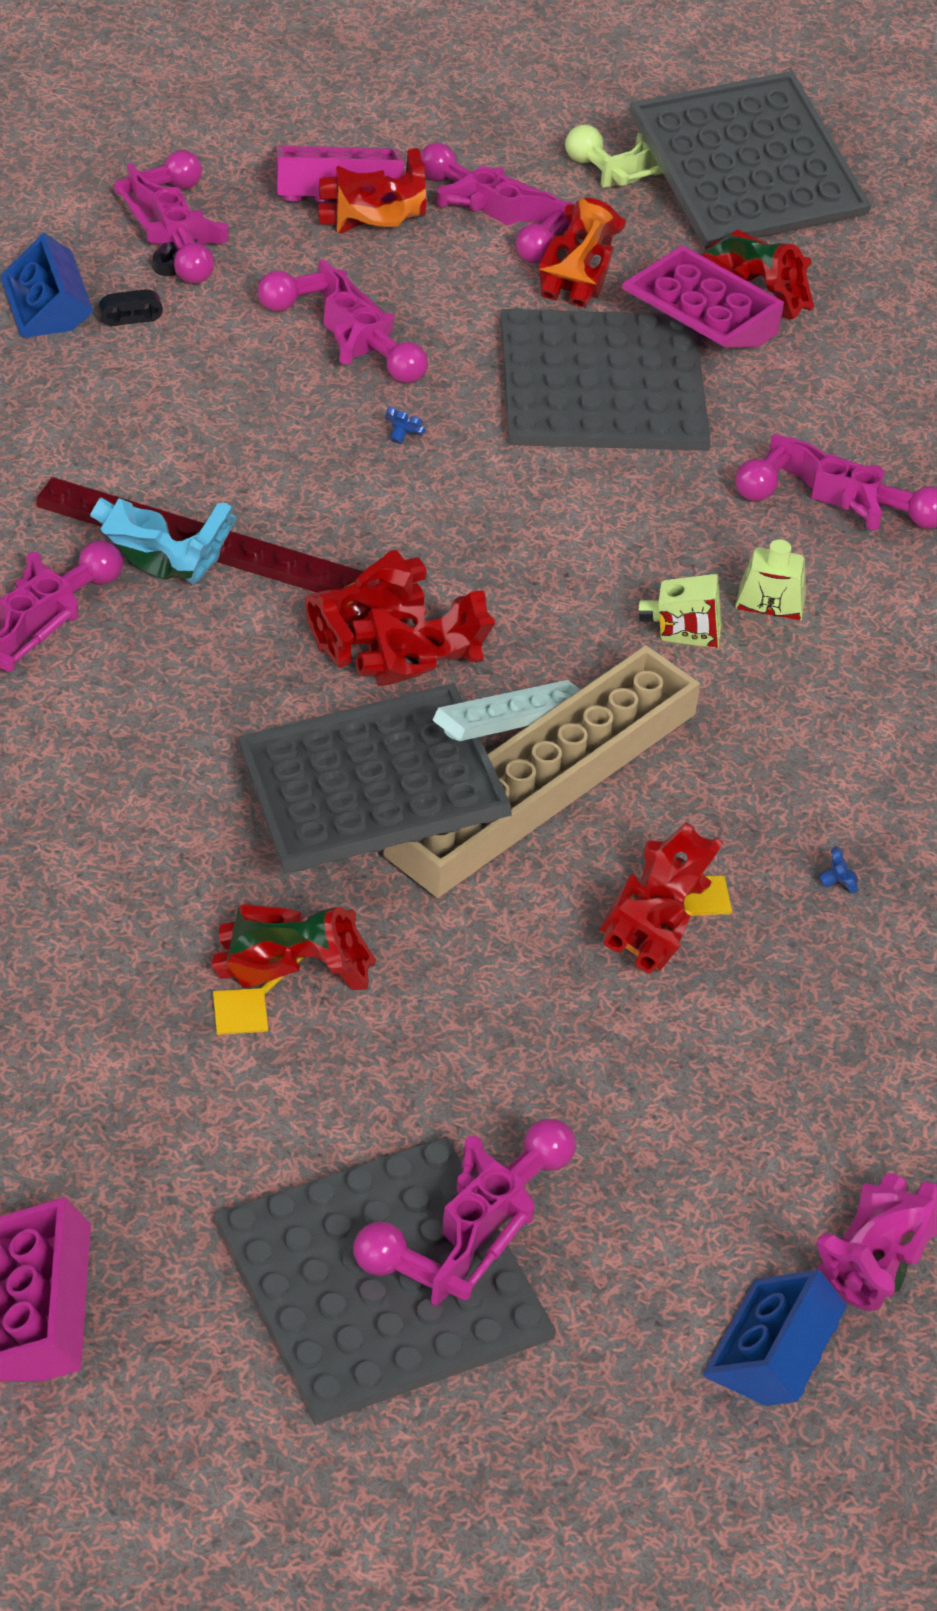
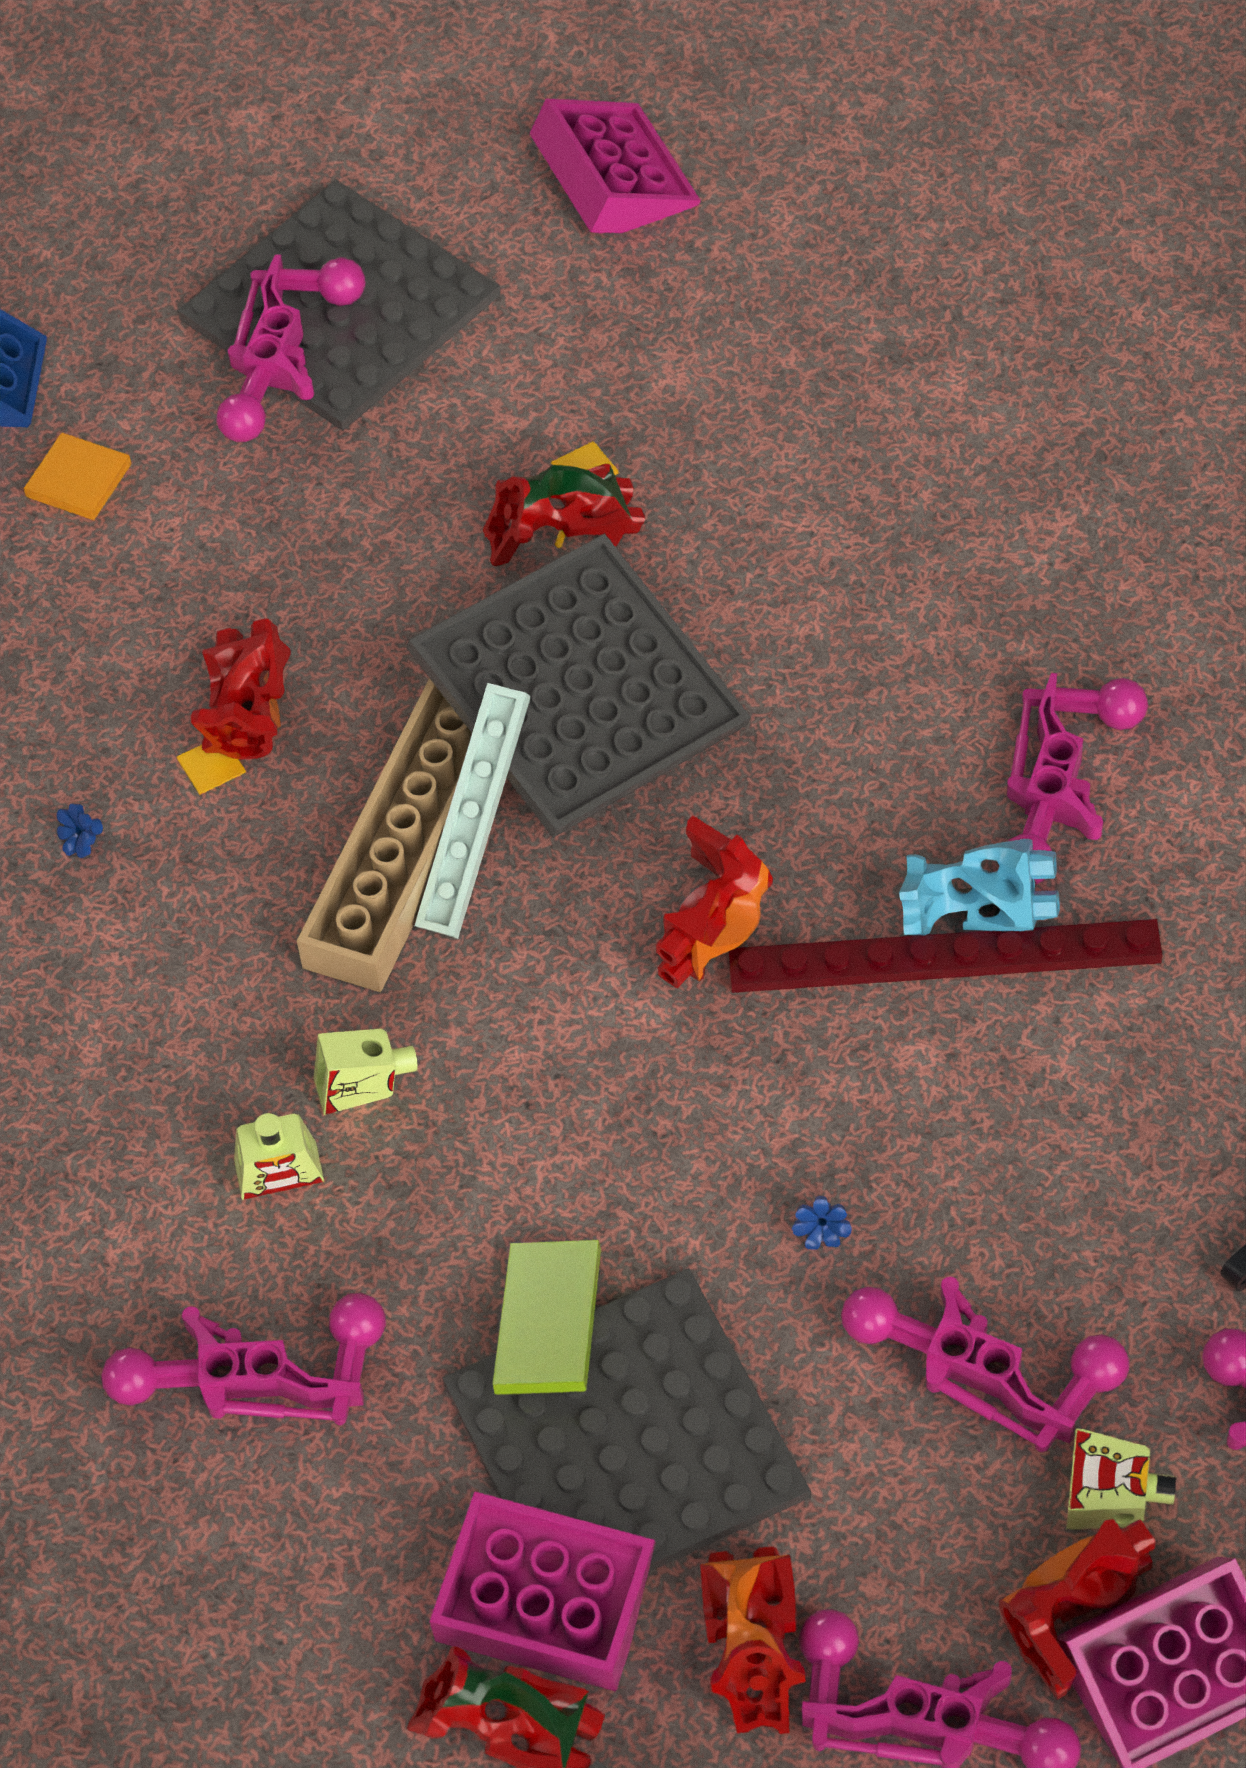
camera: 165 degrees right, 10 degrees up
(314, 240) = (1112, 1482): none -> torso
(390, 640) = (645, 881): red hips -> none
(623, 433) = (547, 1317): none -> lime tile
(727, 1199) = (77, 476): none -> light orange tile

